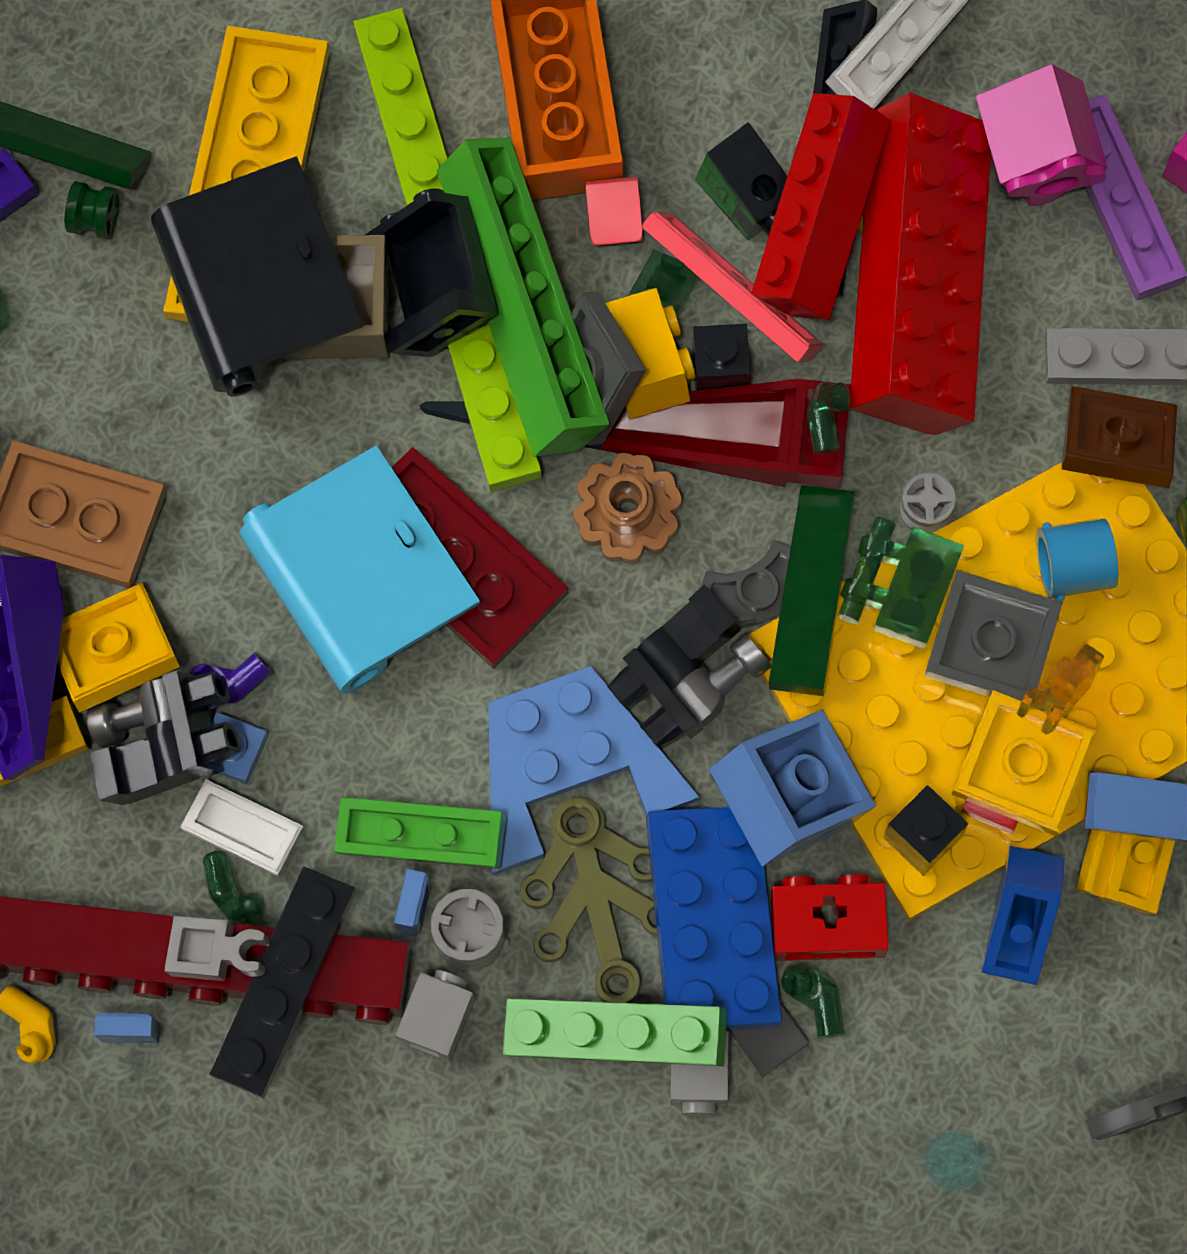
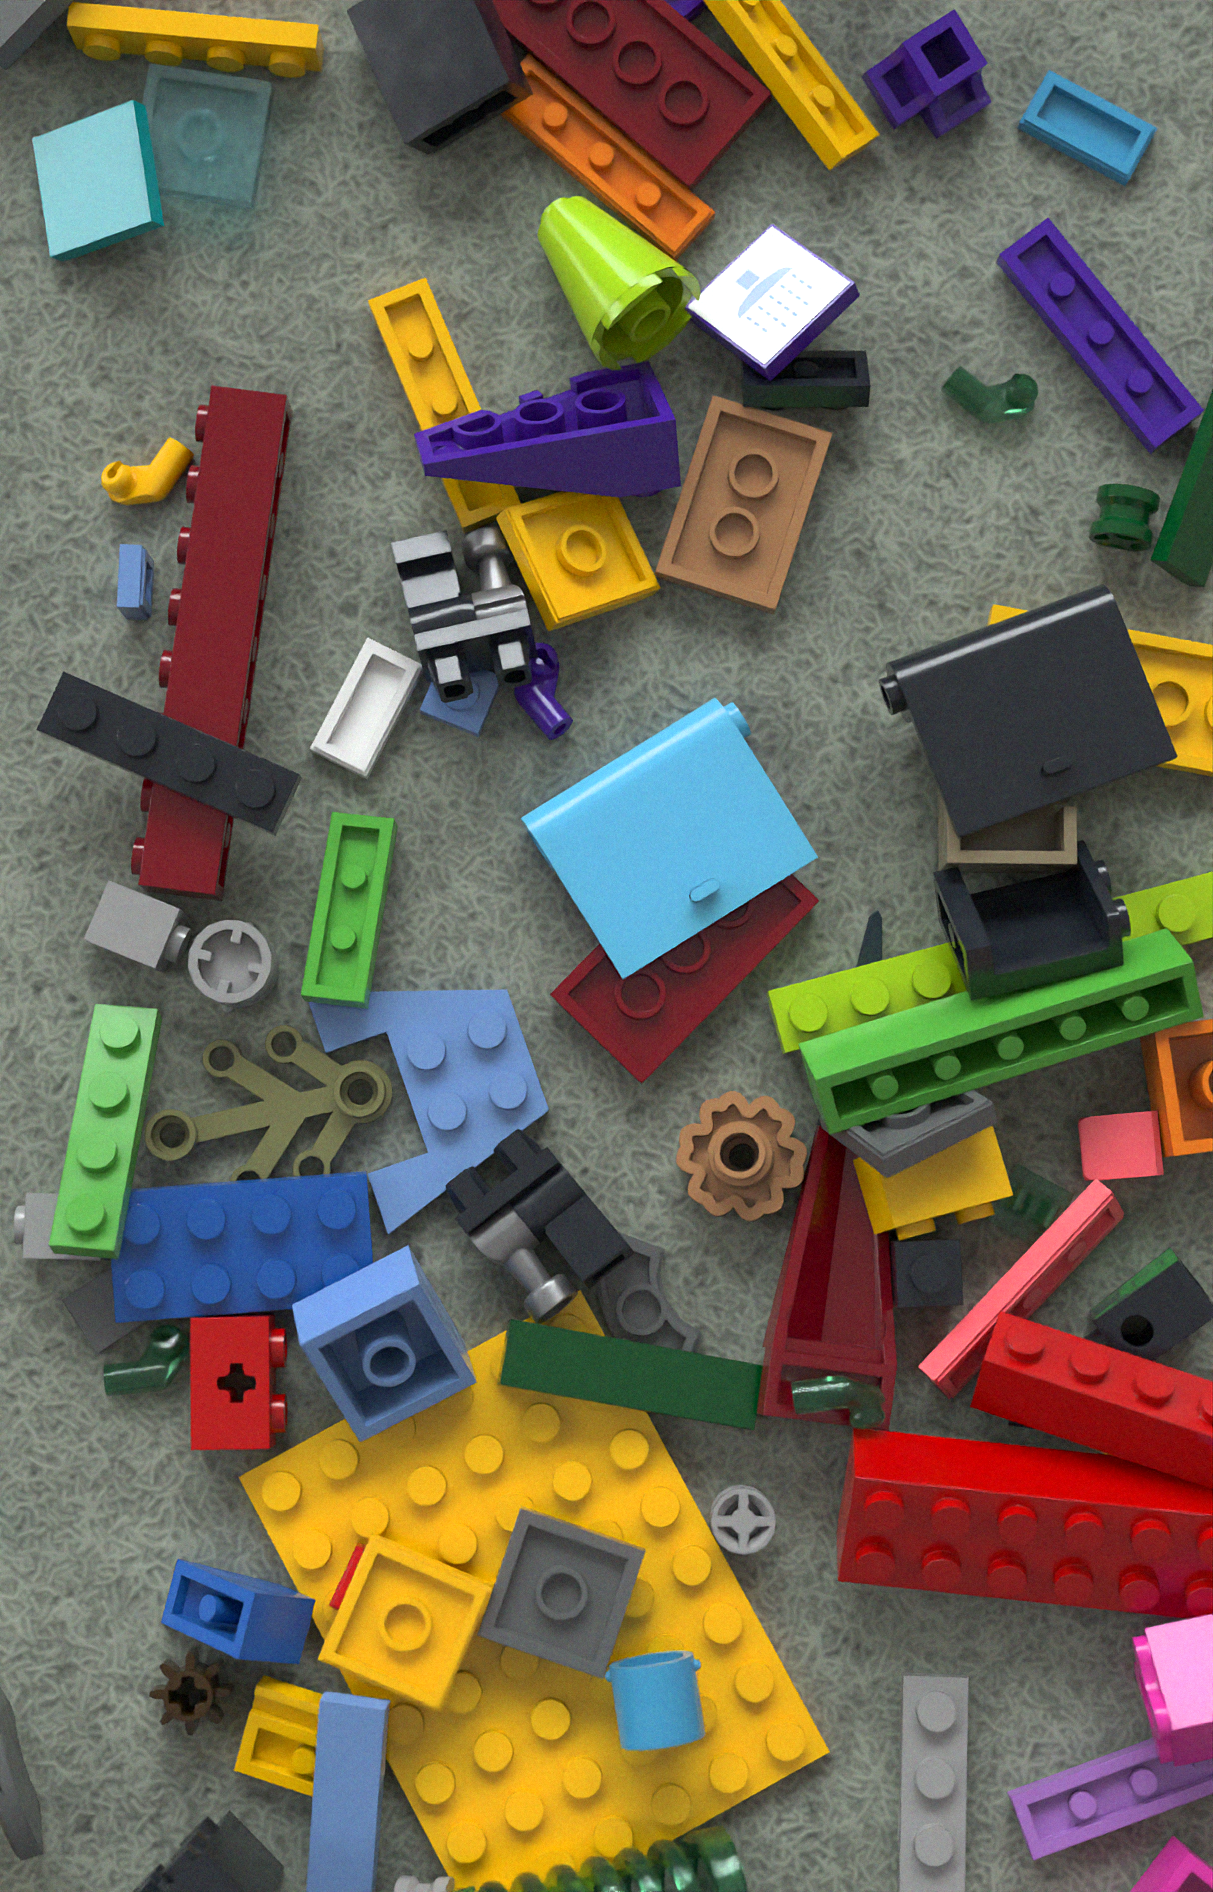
camera: 85 degrees right, 10 degrees up
(206, 947) = (203, 665): light grey plate -> none
(224, 892) = (286, 689): clear green arm -> none
(412, 902) = (269, 901): medium blue tile -> none
(917, 586) = (627, 1501): clear green plate -> none
(925, 830) = (325, 1500): black brick -> none
(1068, 684) = (501, 1681): clear yellow plate -> none
(1082, 961) = (204, 1678): none -> dark brown gear
(1120, 437) = (821, 1761): reddish brown tile -> none

